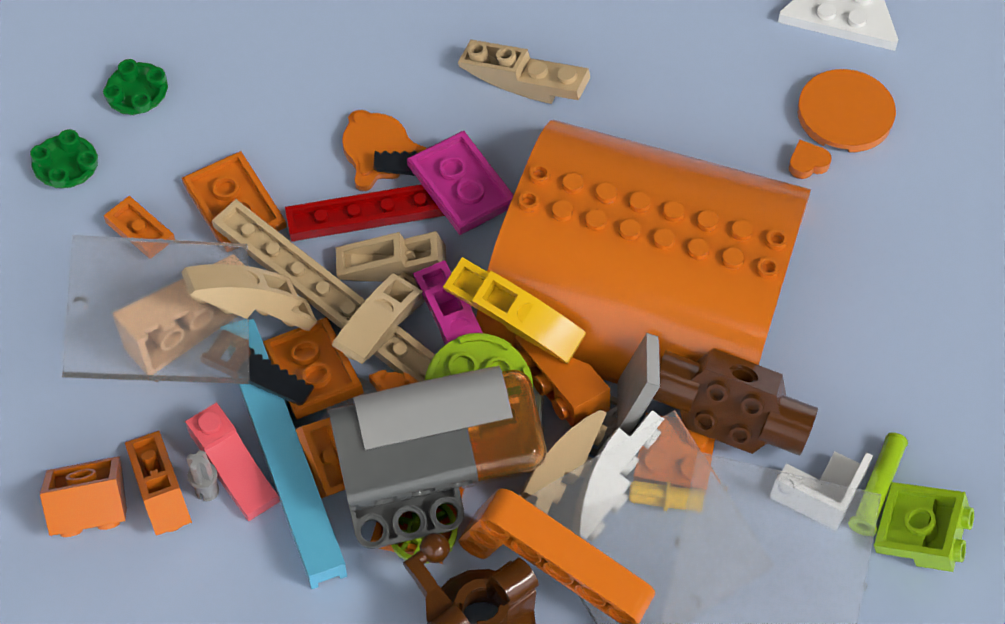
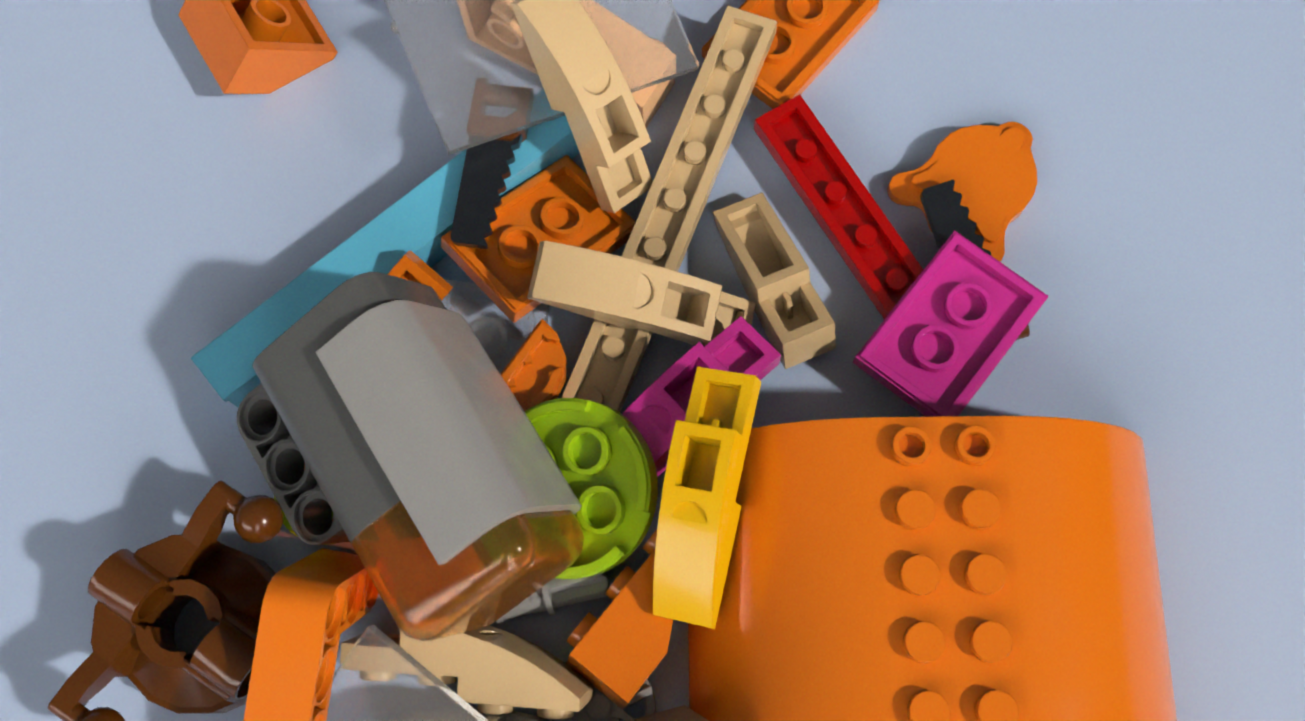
camera: 75 degrees right, 15 degrees up
(158, 483) = (296, 110): orange slope -> none
(202, 476) = (309, 159): light grey axle -> none
(234, 464) = (364, 182): coral slope -> none
(518, 73) = (1217, 353): tan slope -> none

